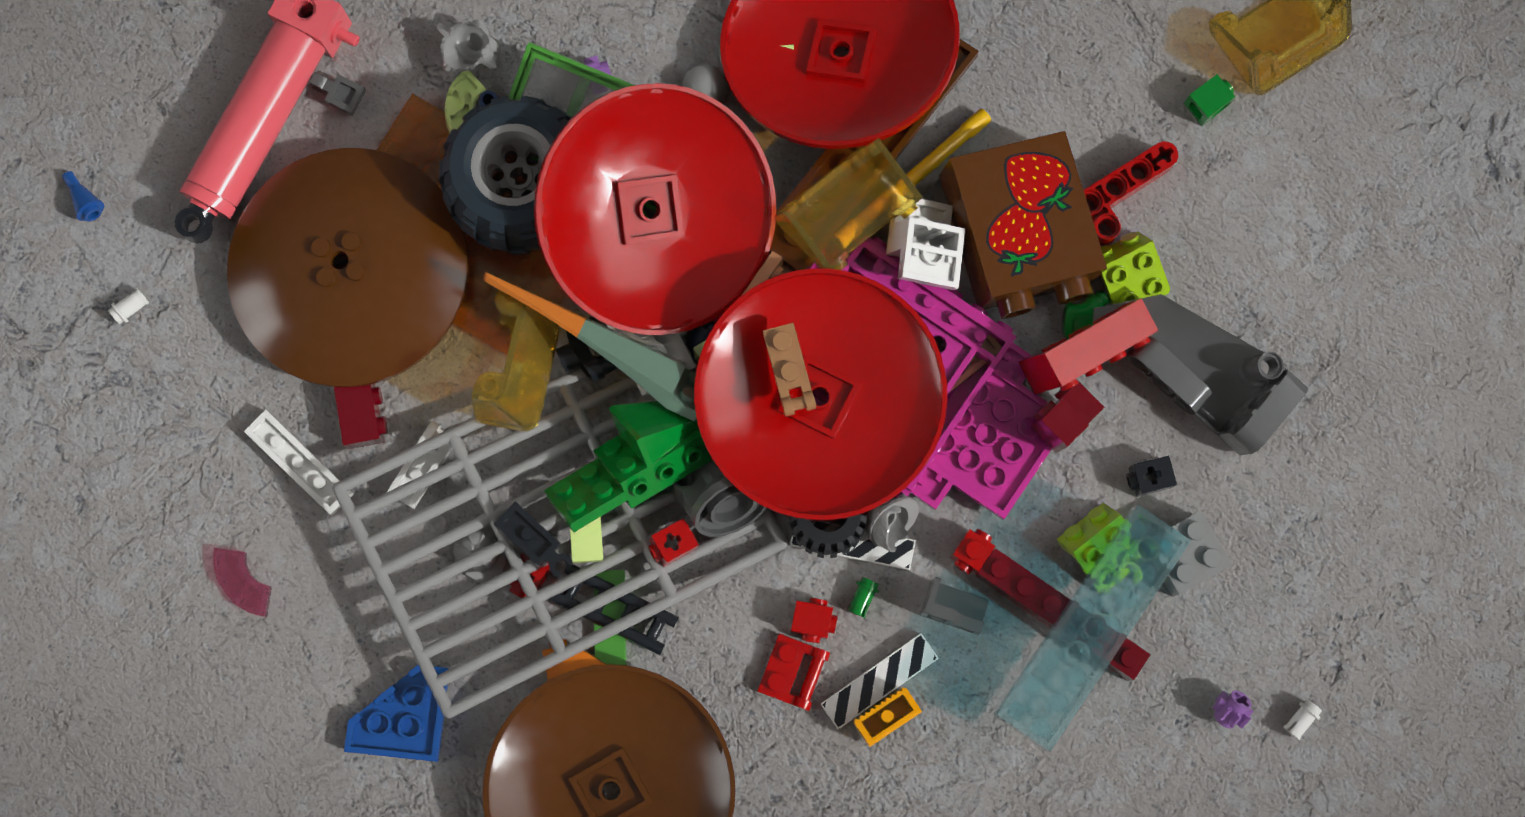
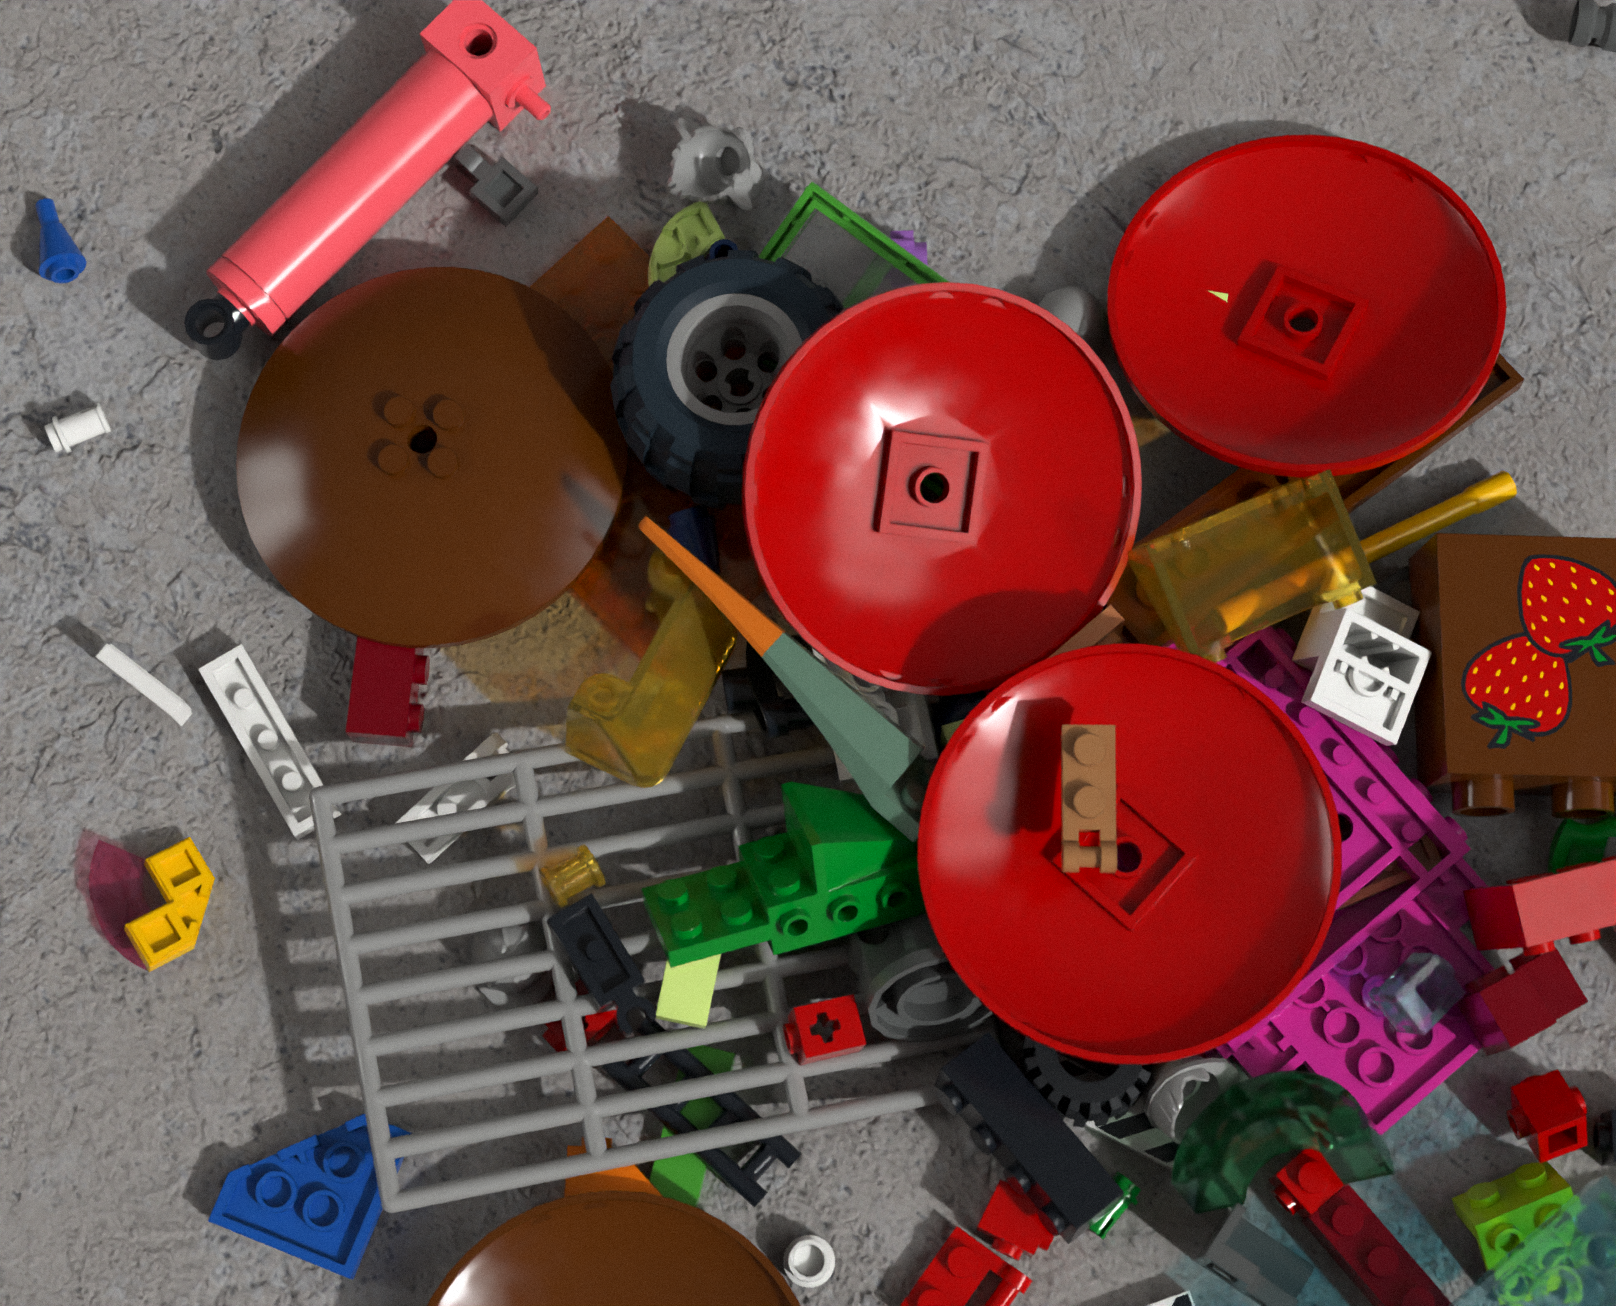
camera: 20 degrees right, 5 degrees down
(214, 448) = (144, 684): none -> white tile
(274, 587) = (173, 927): none -> yellow tile
(501, 494) = (572, 876): none -> clear yellow bush
(518, 273) = (697, 534): none -> dark blue cone
(699, 677) = (809, 1261): none -> white plate
(806, 573) = (1027, 1139): none -> black brick
(938, 525) = (1267, 1119): none -> clear green brick
(1017, 426) = (1420, 1008): none -> clear light blue brick
(1099, 477) = (1548, 1115): none -> red brick

